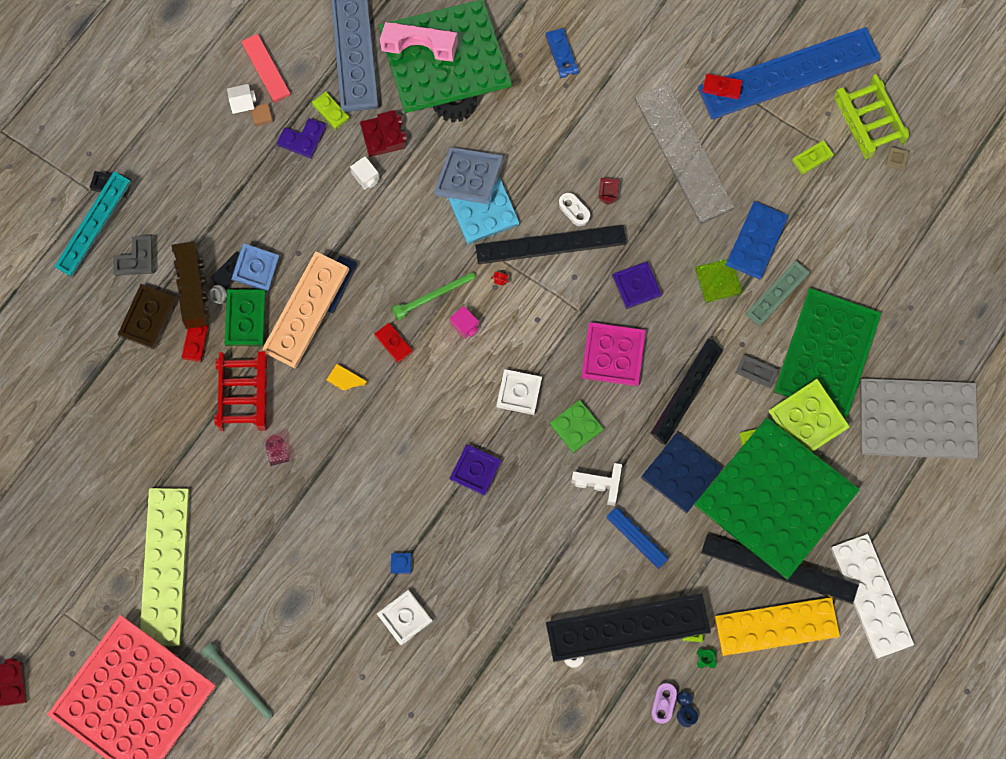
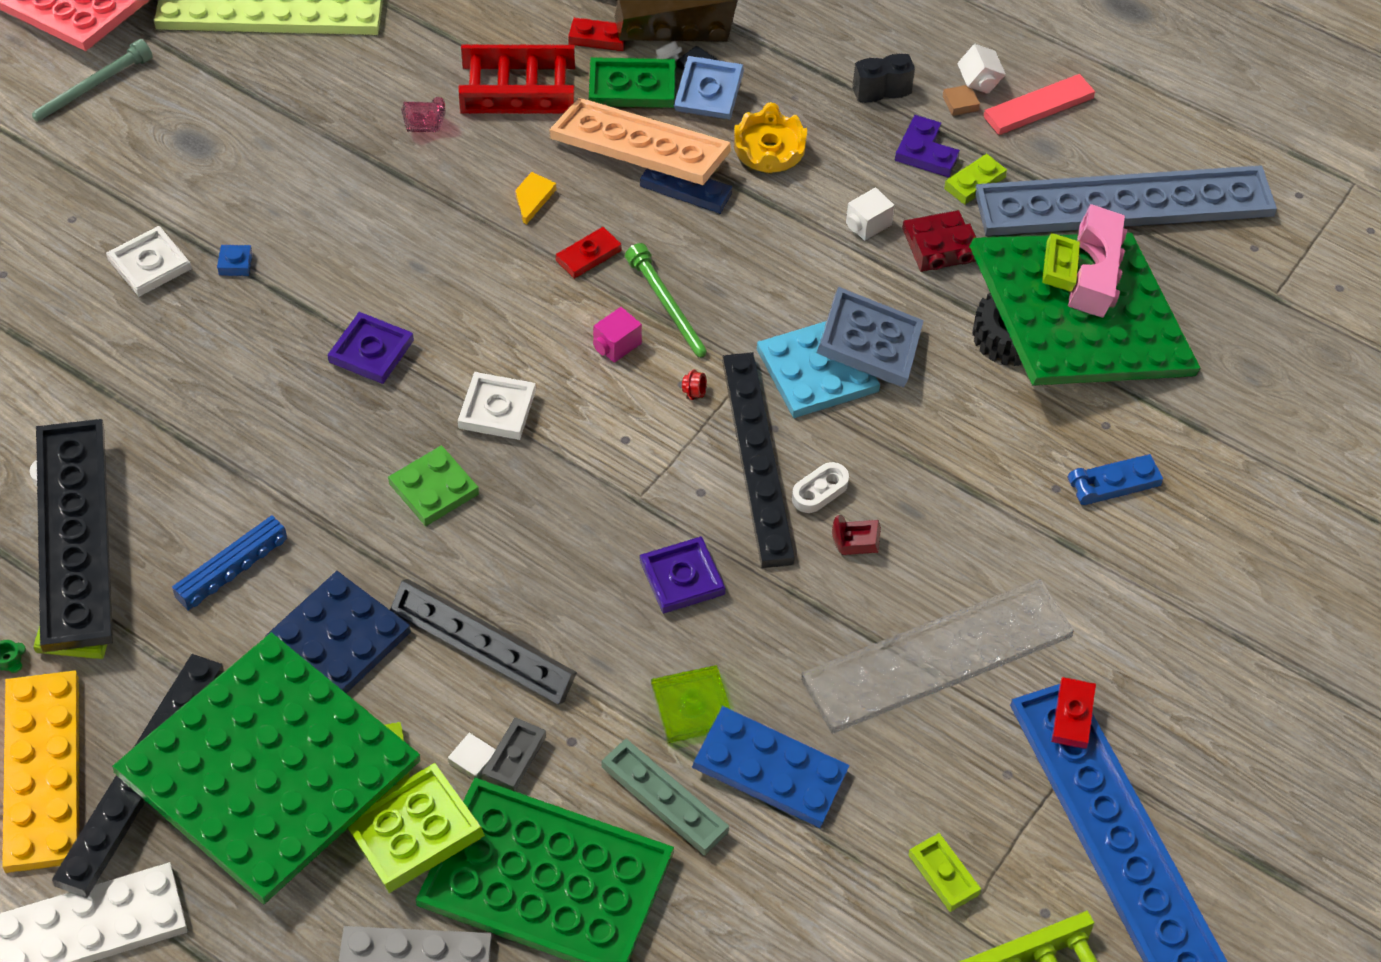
camera: 90 degrees right, 20 degrees down
(246, 159) = (883, 78): none -> black brick
(301, 218) = (770, 127): none -> yellow plate
(423, 60) = (1061, 262): none -> lime plate
(600, 483) = (326, 524): white bracket -> none
(613, 354) = (556, 537): dark pink plate -> none
(757, 394) = (471, 756): none -> white tile

